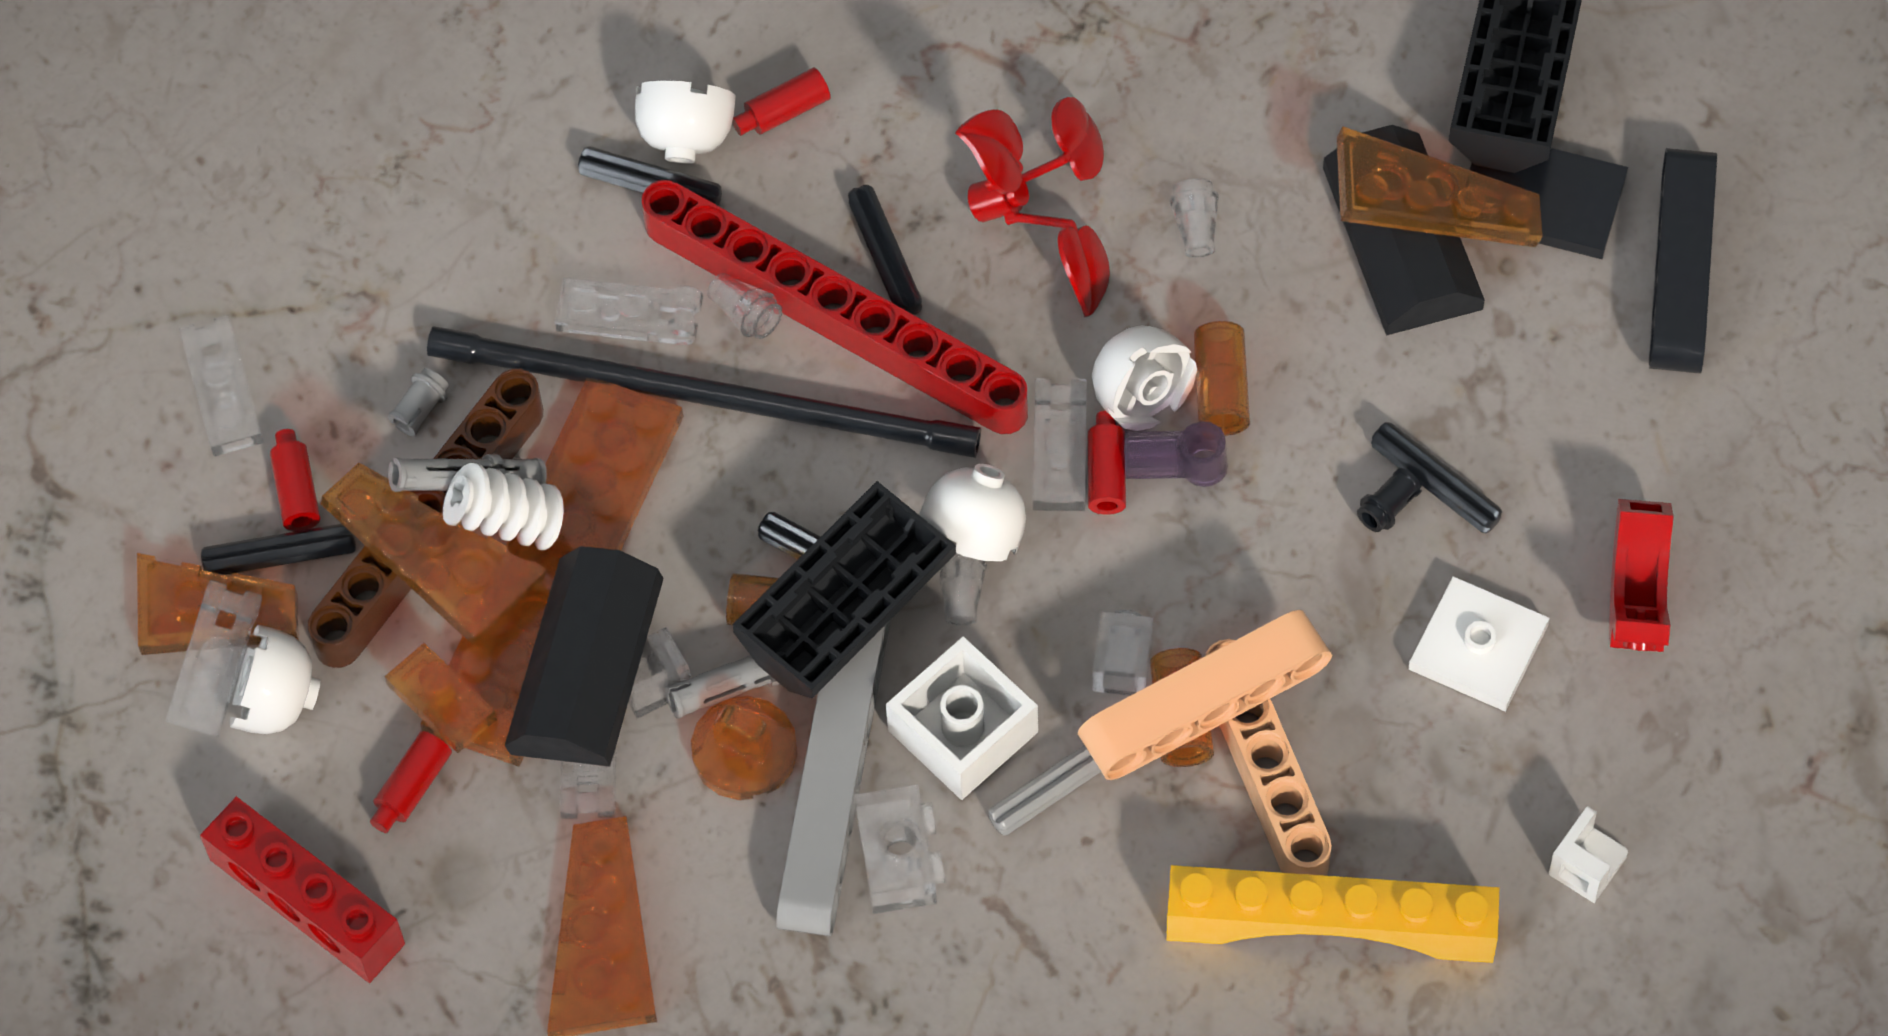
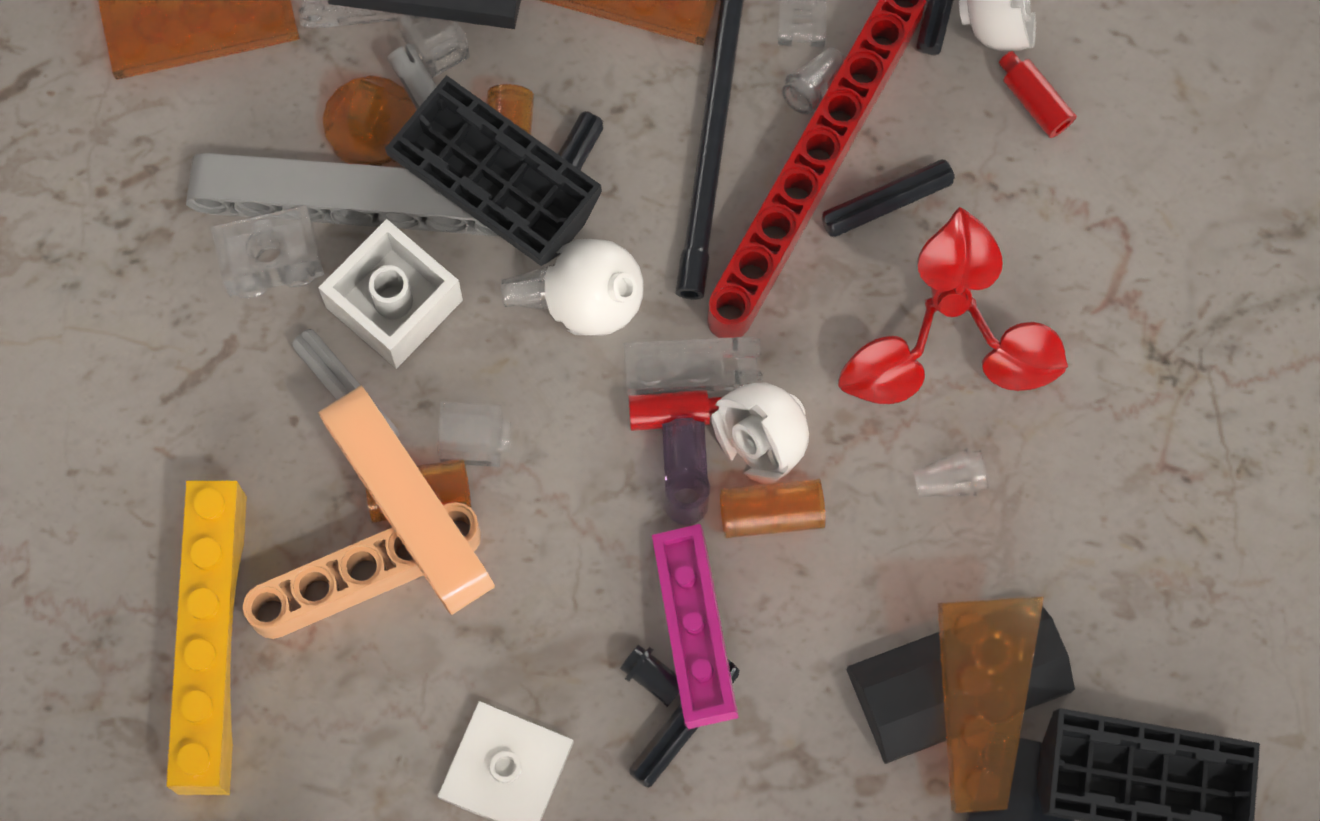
camera: 80 degrees right, 10 degrees up
(1343, 451) = (694, 627): none -> dark pink plate

